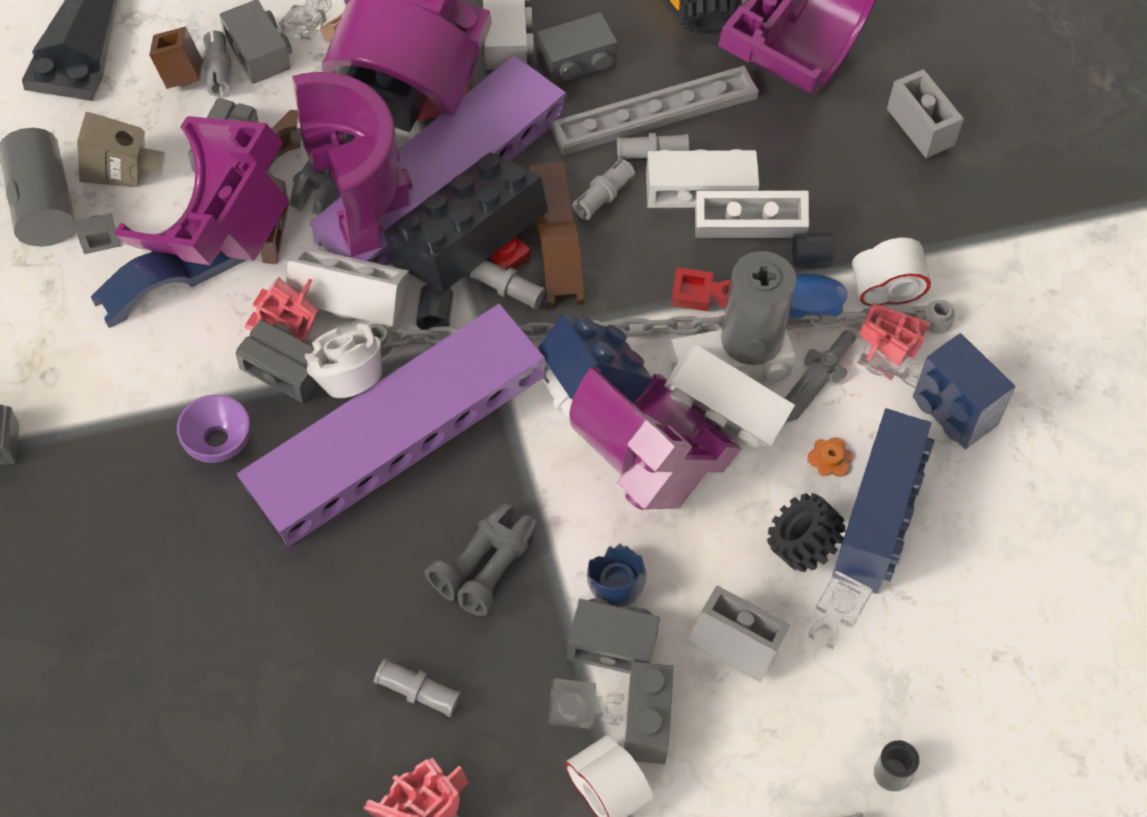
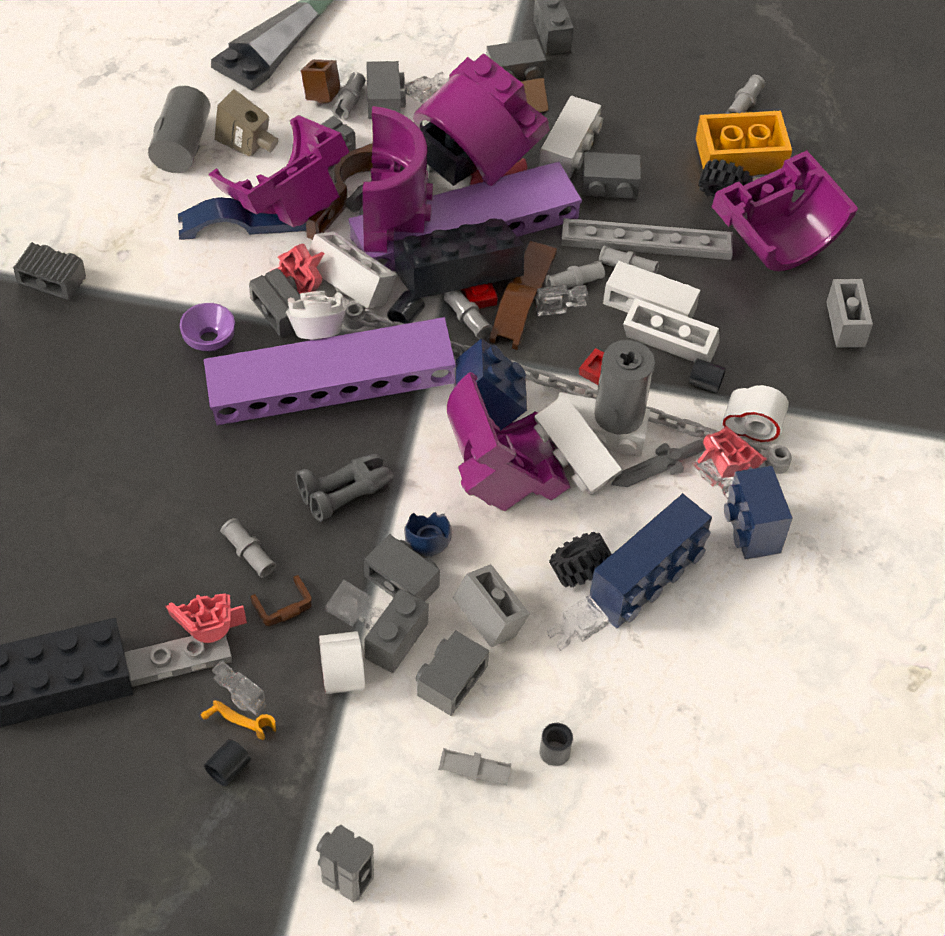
camera: 25 degrees right, 5 degrees down
(97, 233) = (199, 172): dark grey plate -> none
(505, 746) = (287, 612): none -> reddish brown piece
(600, 224) = (557, 299): none -> clear plate
(737, 733) = (452, 672): none -> dark grey brick
(817, 295) = (684, 404): blue dish -> none
(826, 464) = (635, 520): orange plant -> none

